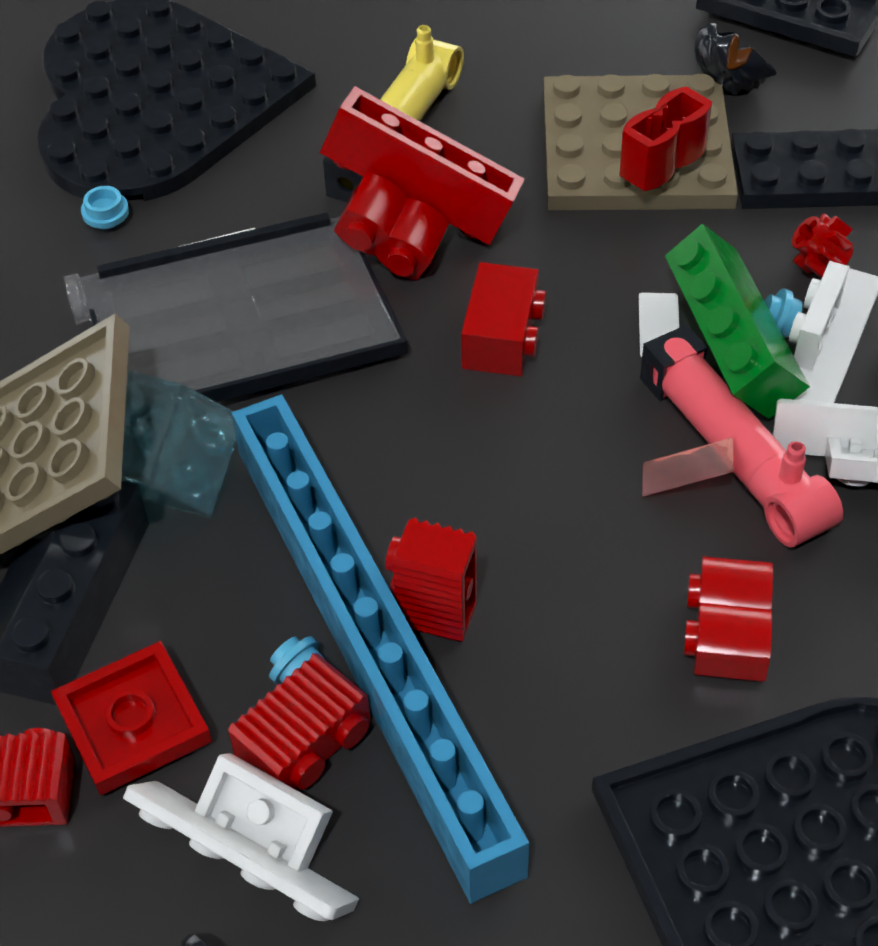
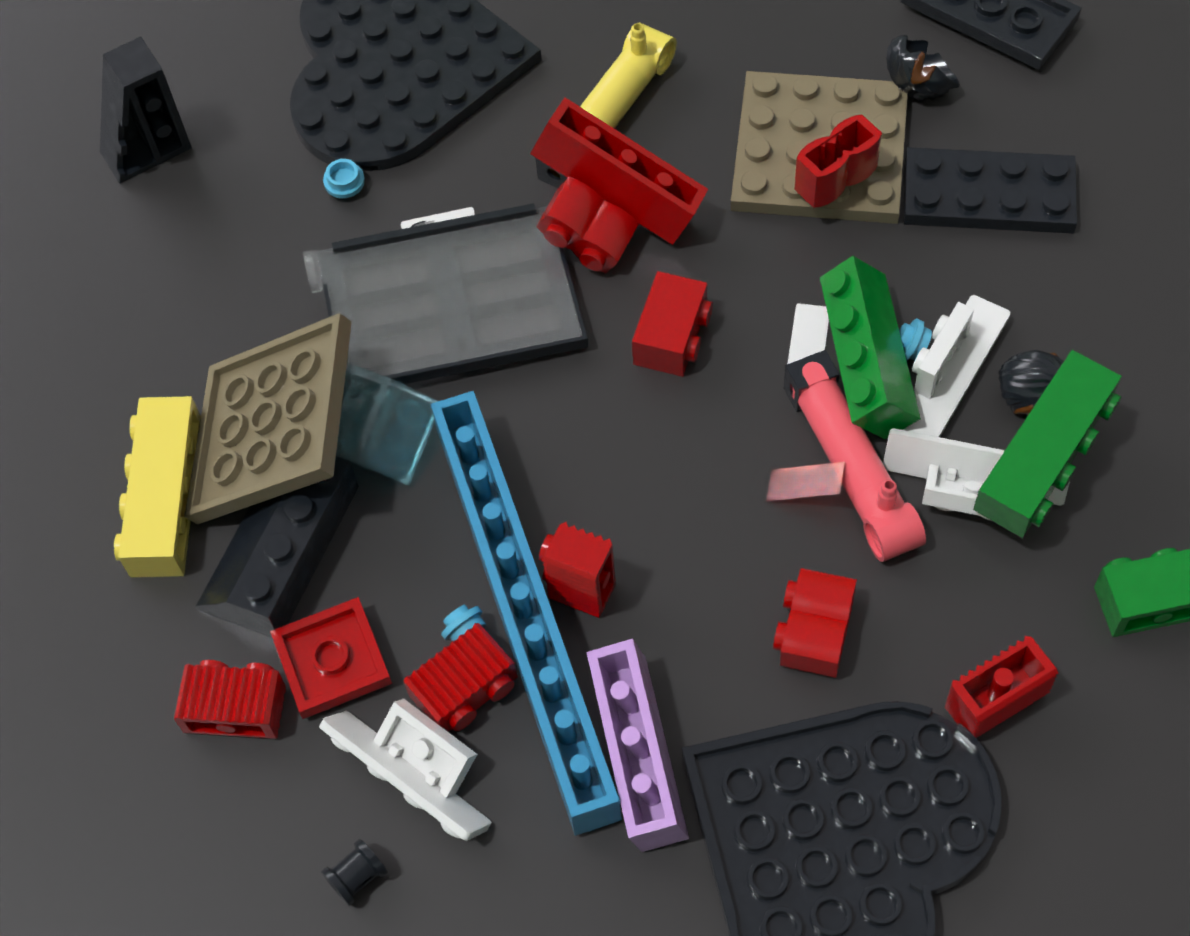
camera: 10 degrees right, 10 degrees up
(539, 782) = (637, 746): none -> lavender brick
(820, 242) = (962, 275): red gear -> none

